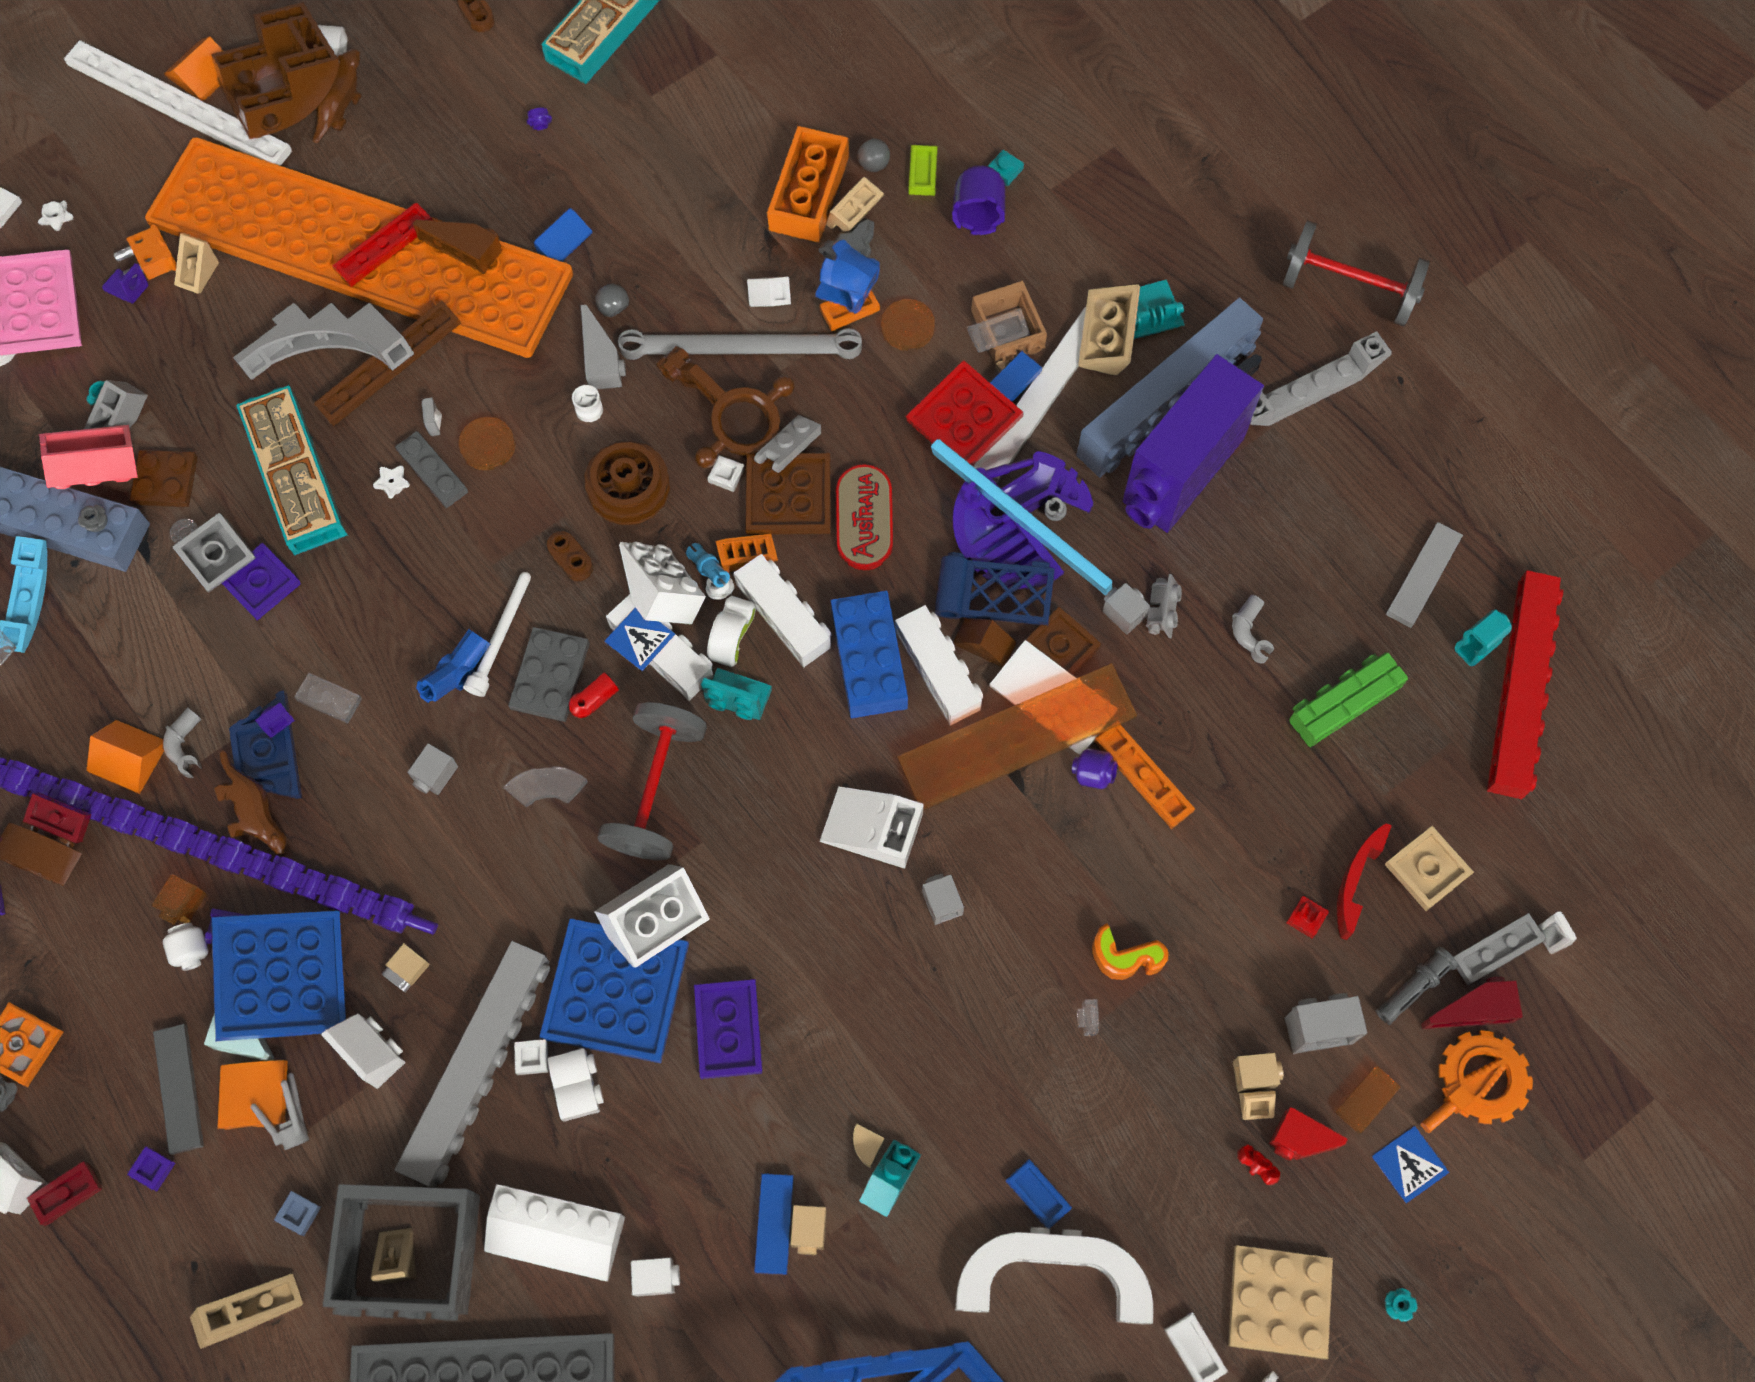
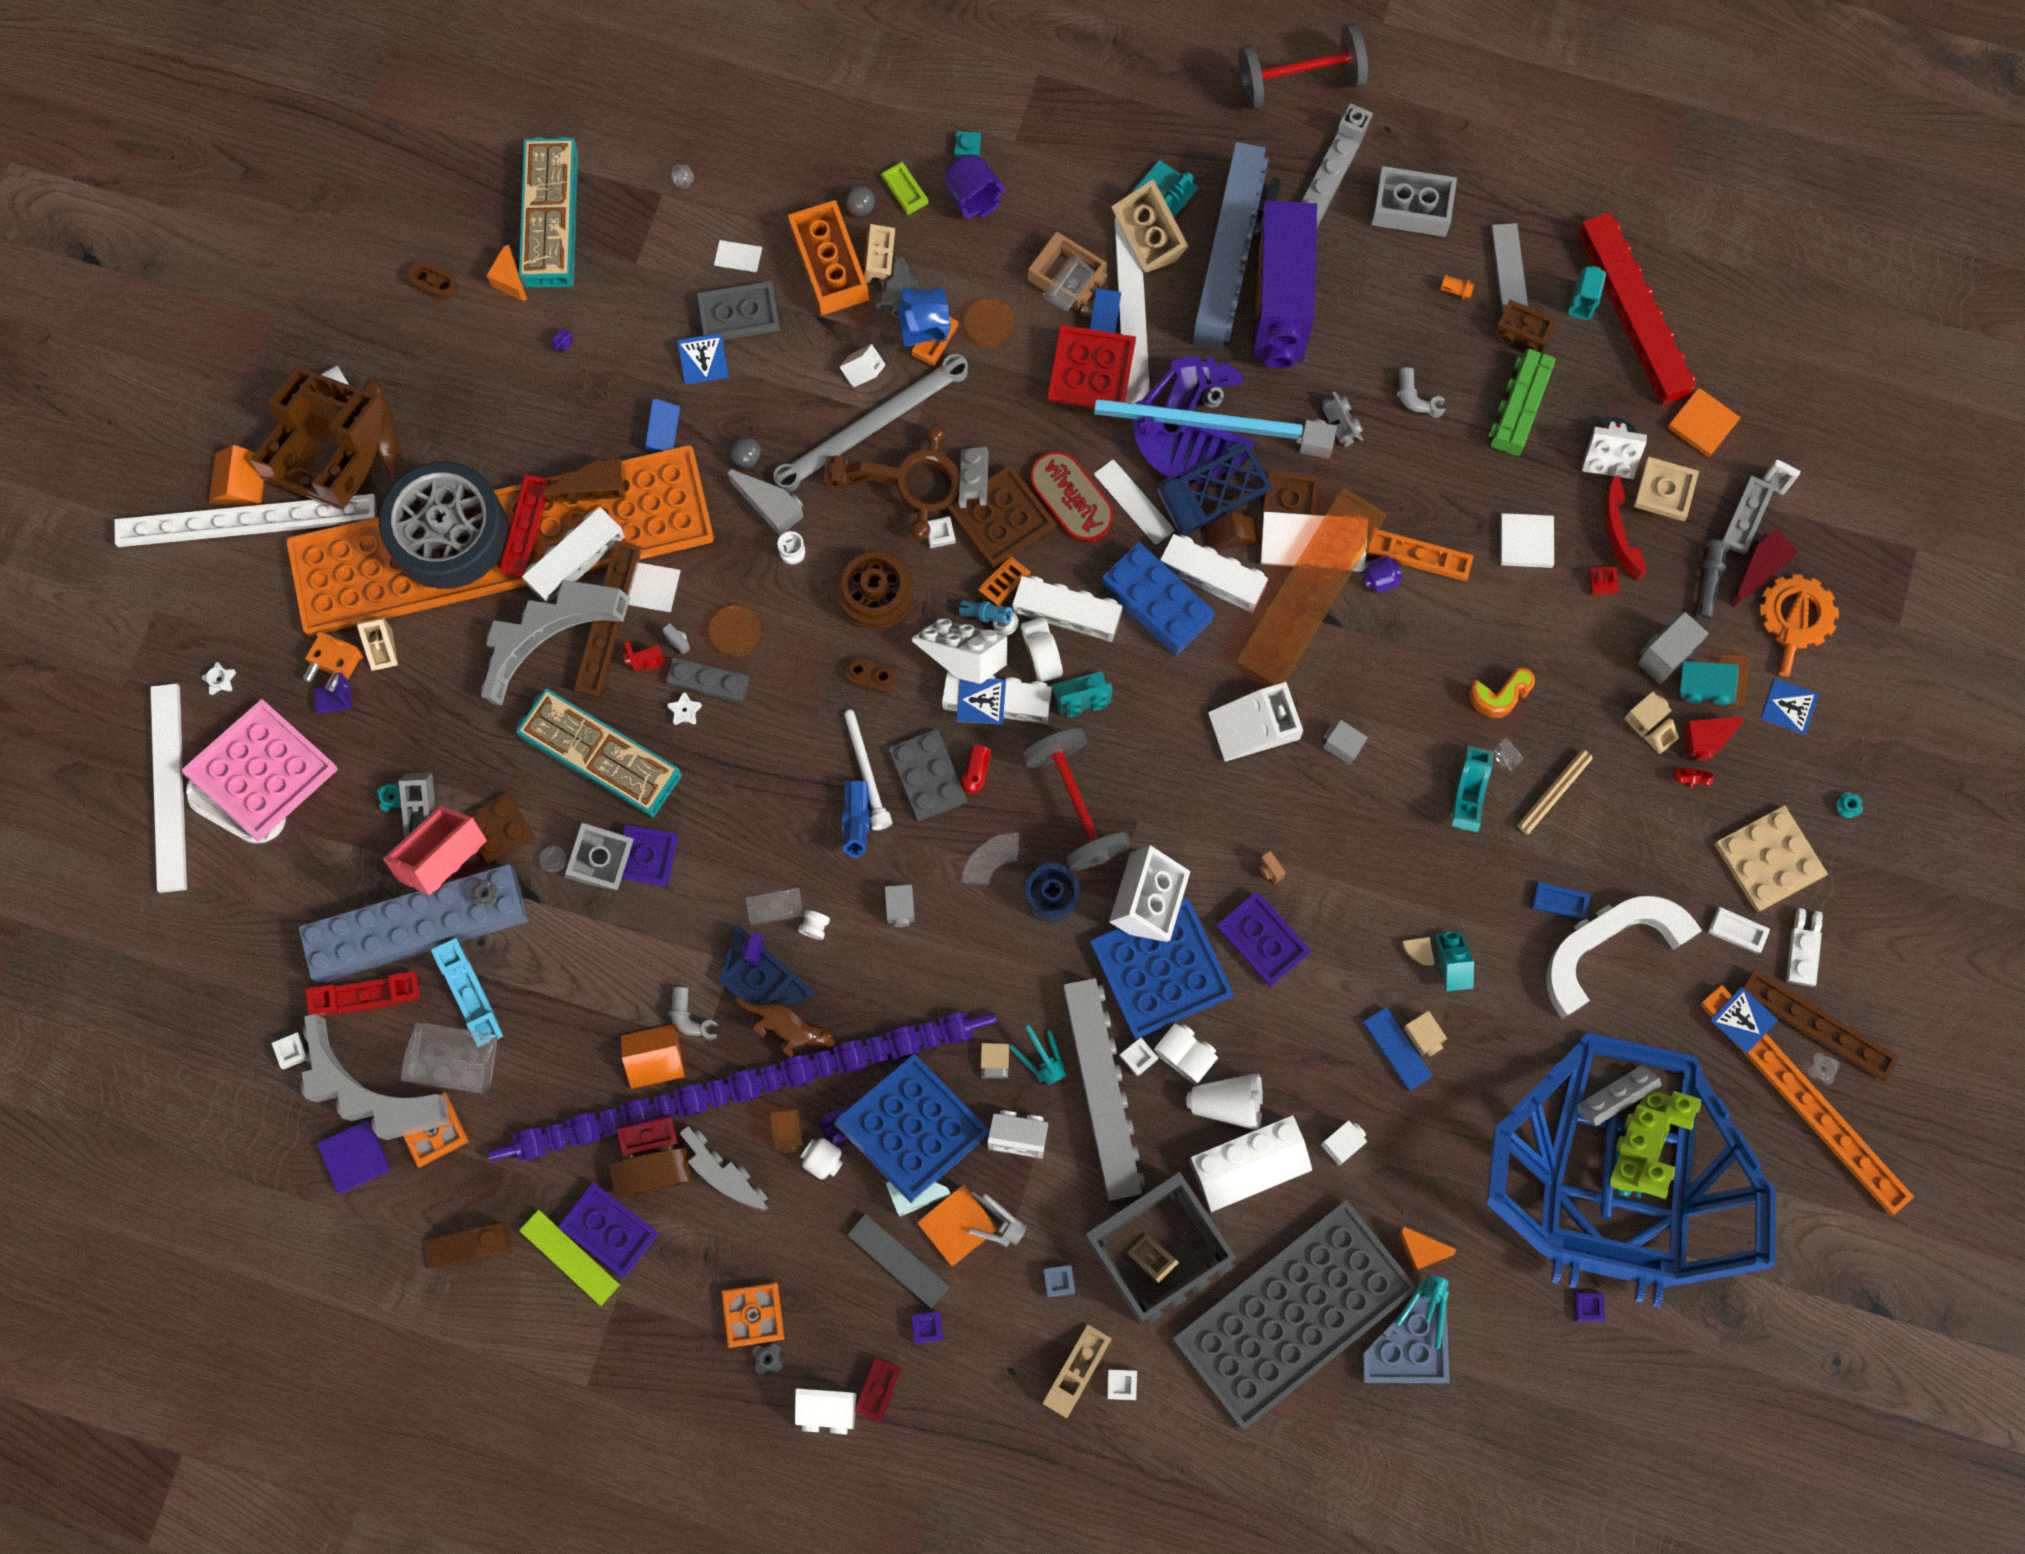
camera: 35 degrees left, 5 degrees up
(92, 905) = (728, 1180): none -> light grey slope
(274, 1355) = (1122, 1384): none -> white plate
(310, 180) = (443, 525): none -> wheel
(346, 736) = (813, 924): none -> white wheel
(390, 416) = (644, 660): none -> red bracket
(400, 290) = (573, 555): none -> white brick
(443, 1011) = (1050, 1070): none -> teal plant
(451, 364) = (654, 587): none -> white sticker
(532, 36) = (505, 275): none -> orange slope
(569, 835) = (1065, 886): none -> dark blue brick
(579, 1159) = (1229, 1101): none -> white cone
(641, 203) = (703, 358): none -> blue sticker
(700, 184) = (739, 311): none -> dark grey plate
(739, 141) = (738, 256): none -> white sticker
(741, 48) = (682, 176): none -> clear plate
(785, 968) = (1271, 868): none -> nougat plate
(918, 558) = (1134, 502): none -> white sticker
(1028, 1025) = (1471, 788): none -> teal arch
(1110, 1084) = (1555, 791): none -> tan axle
(1259, 829) = (1527, 540): none -> white tile
(1340, 1084) = (1709, 682): none -> teal brick
(1362, 556) = (1457, 286): none -> orange pin
(1375, 454) = (1414, 201): none -> light grey brick
(1400, 631) = (1524, 327): none -> reddish brown bracket
(1405, 797) = (1614, 448): none -> white plate
(1517, 833) = (1703, 422): none -> orange tile

